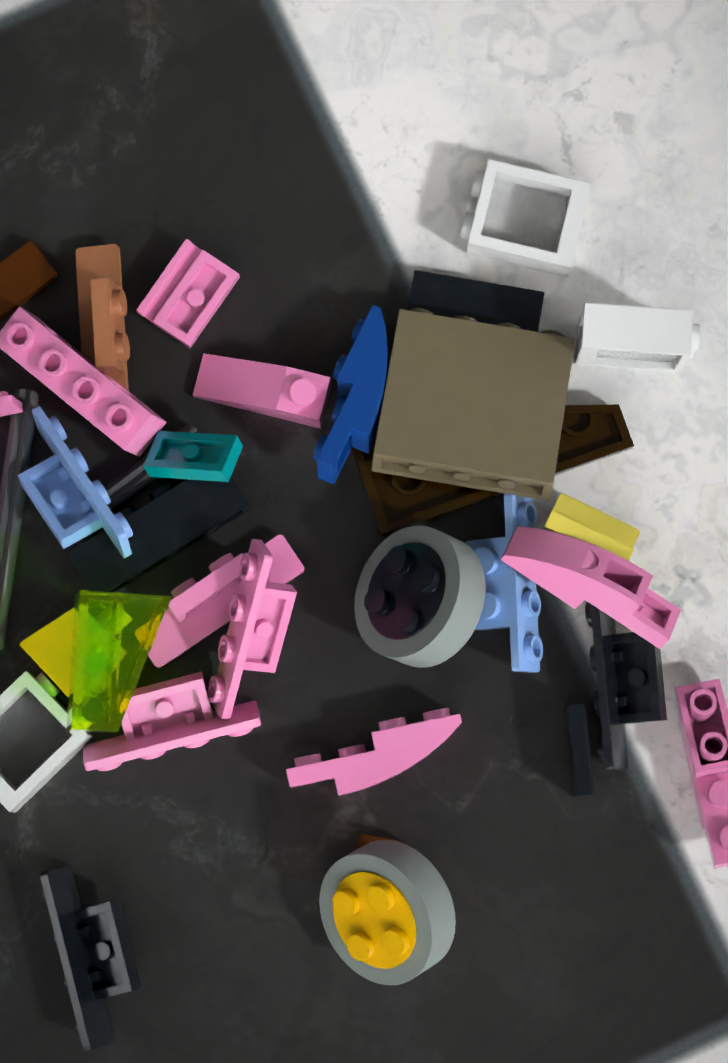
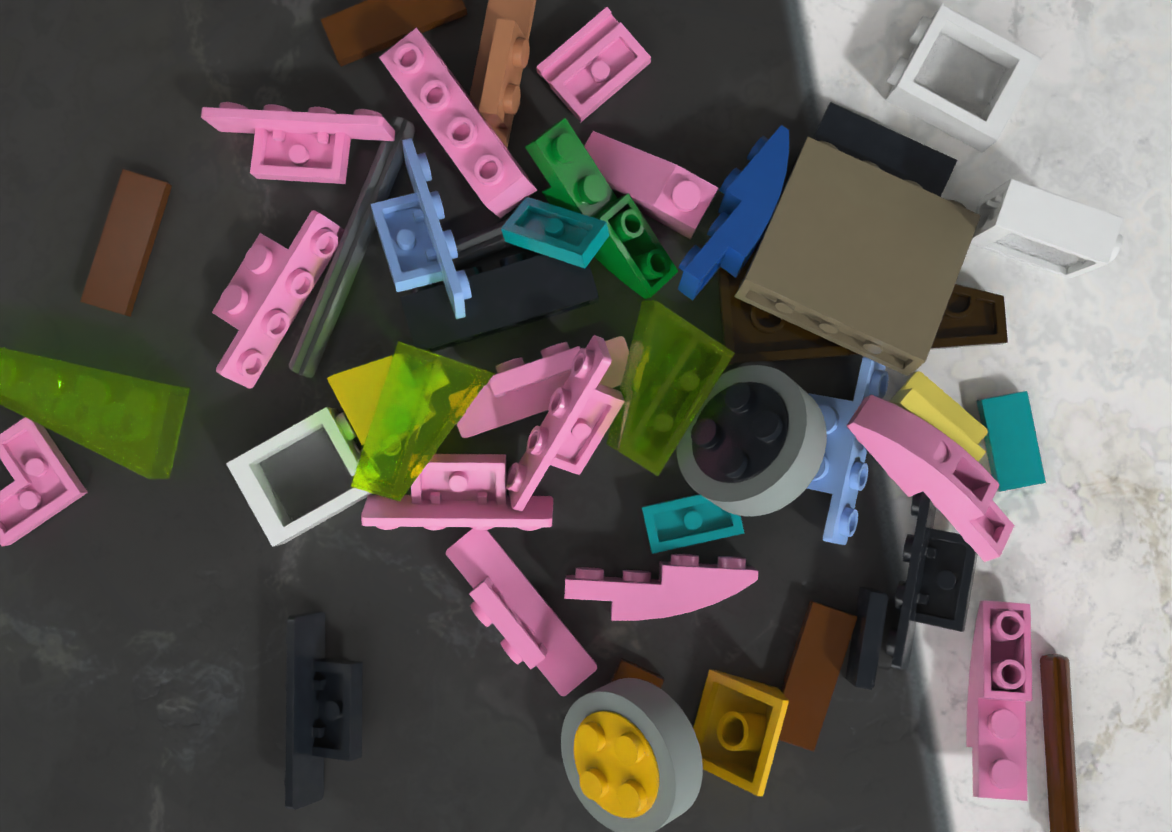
camera: 15 degrees right, 5 degrees up
(203, 408) = (578, 185): none -> green slope
(254, 813) = (519, 612): none -> bright pink bracket
(328, 568) = (663, 385): none -> clear neon green wedge
(387, 689) = (687, 523): none -> teal plate
(481, 866) = (739, 729): none -> yellow slope
(540, 800) = (814, 672): none -> reddish brown tile
(665, 535) = (1011, 441): none -> teal tile

